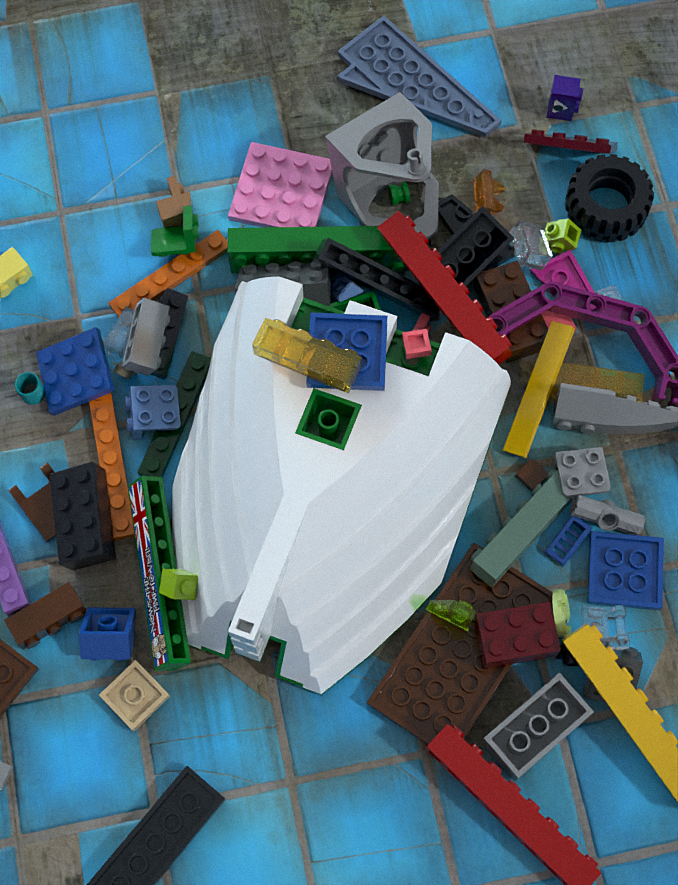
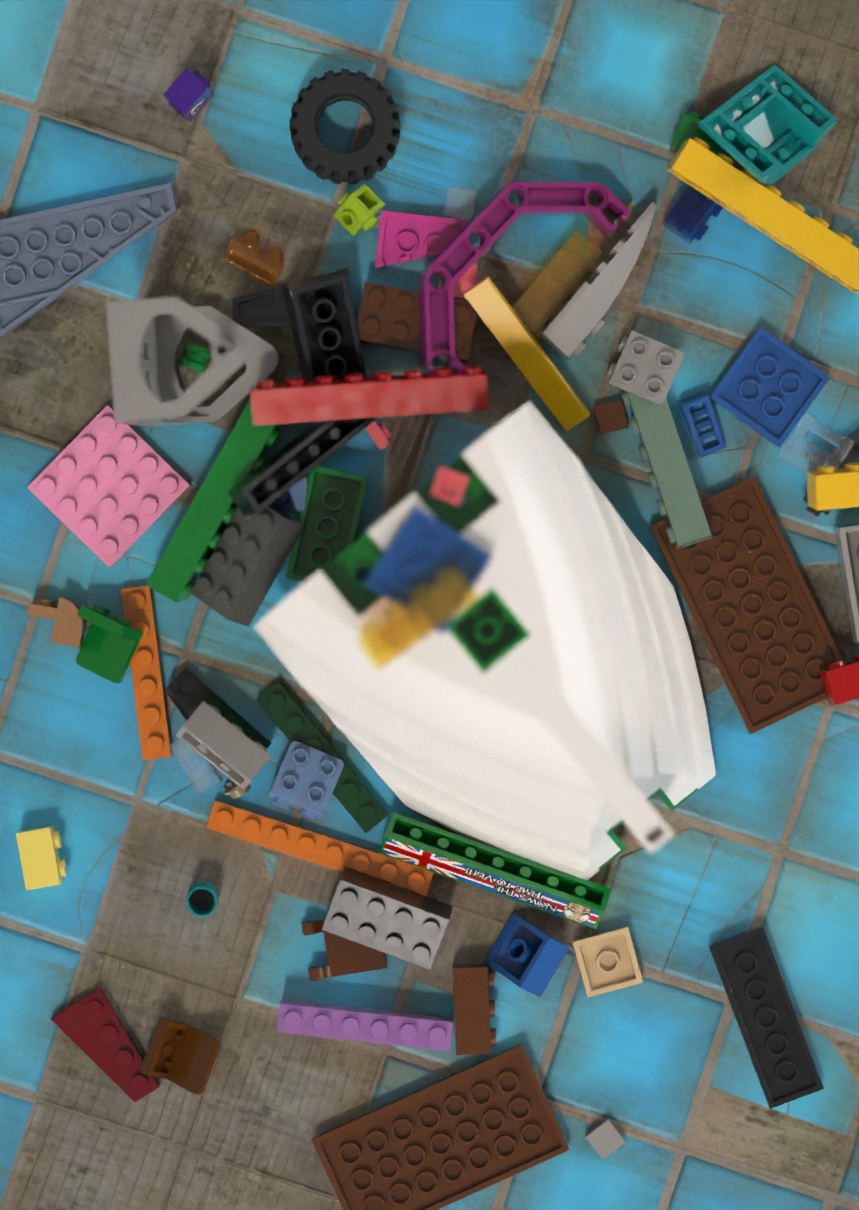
camera: 65 degrees left, 20 degrees up
(75, 371) = (210, 840): blue plate -> none
(178, 584) = (530, 860): lime brick -> none
(456, 612) = (722, 592): clear neon green wing -> none
(517, 635) = (776, 545): dark red brick -> none
(530, 245) = (351, 253): clear brick -> none
(561, 612) = (776, 485): yellowish green tile -> none
(577, 142) = (255, 113): dark red wing -> none
(596, 510) = (704, 370): light grey piece -> none

